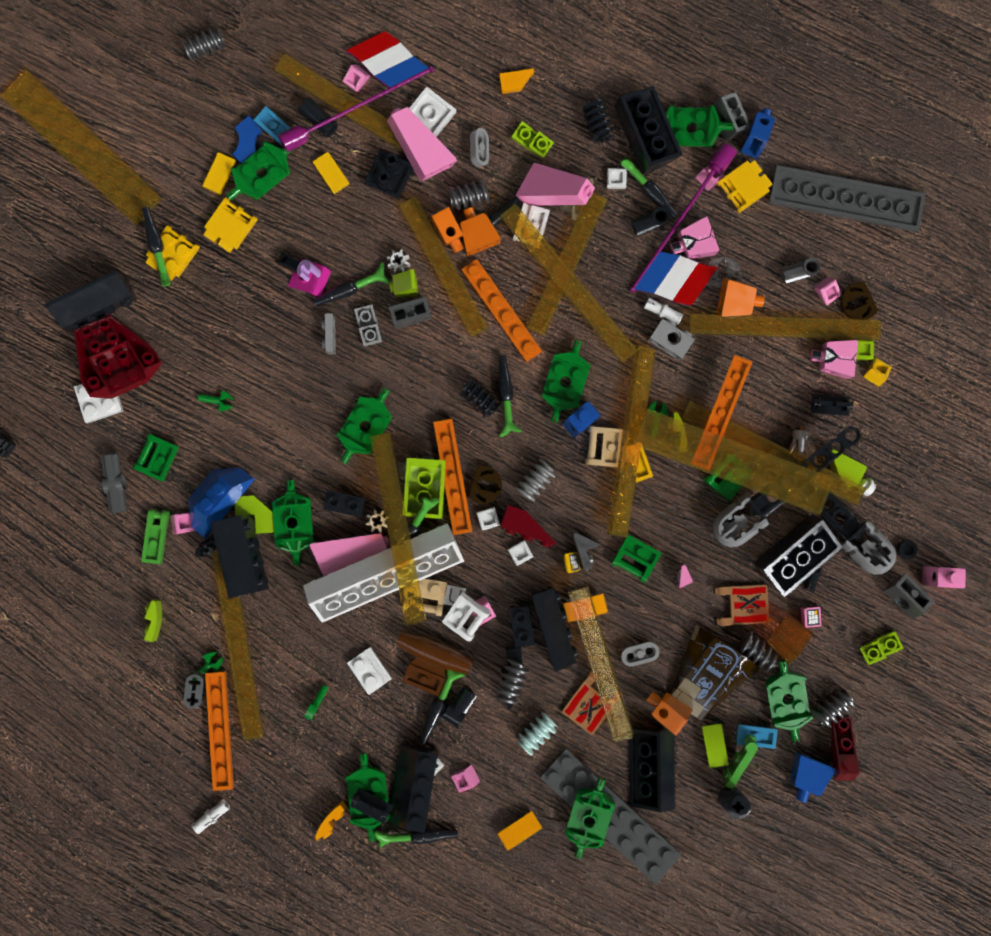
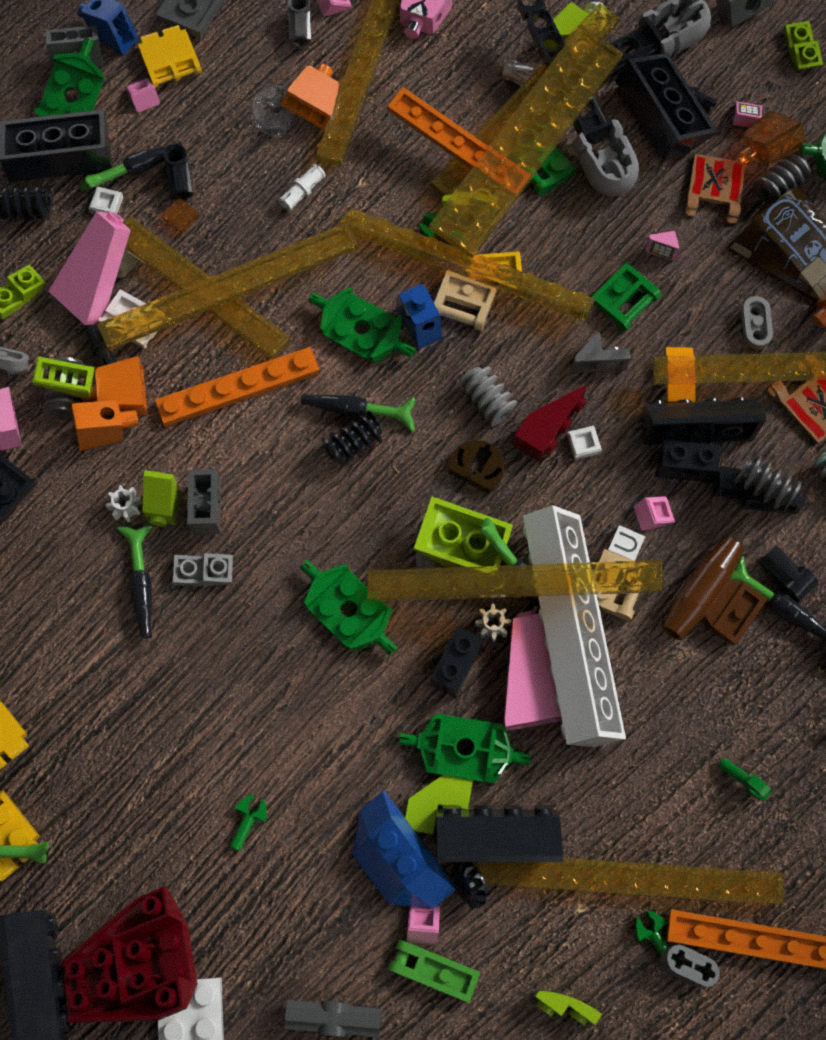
camera: 75 degrees left, 15 degrees down
(161, 459) = (317, 932): green plate -> none
(302, 268) = (82, 645): piece -> none
(315, 285) = (104, 636): dark pink piece -> none
(329, 341) = (209, 628): light grey plate -> none
(369, 670) = (710, 691): white plate -> none
(443, 267) = (151, 446): clear yellow plate -> none
(453, 477) = (414, 502): orange plate -> none
(461, 612) = (652, 535): white plate -> none
(477, 210) = (72, 388): none -> lime slope
(488, 518) = (525, 473): white tile -> none
(571, 562) = (612, 381): slope -> none
(619, 233) = (180, 215): none -> clear orange tile
(660, 339) = (339, 198): light grey brick -> none
(673, 274) = (257, 164): flag -> none
(696, 241) = (222, 125): bright pink torso -> none
(830, 405) = (480, 28): black hinge -> none

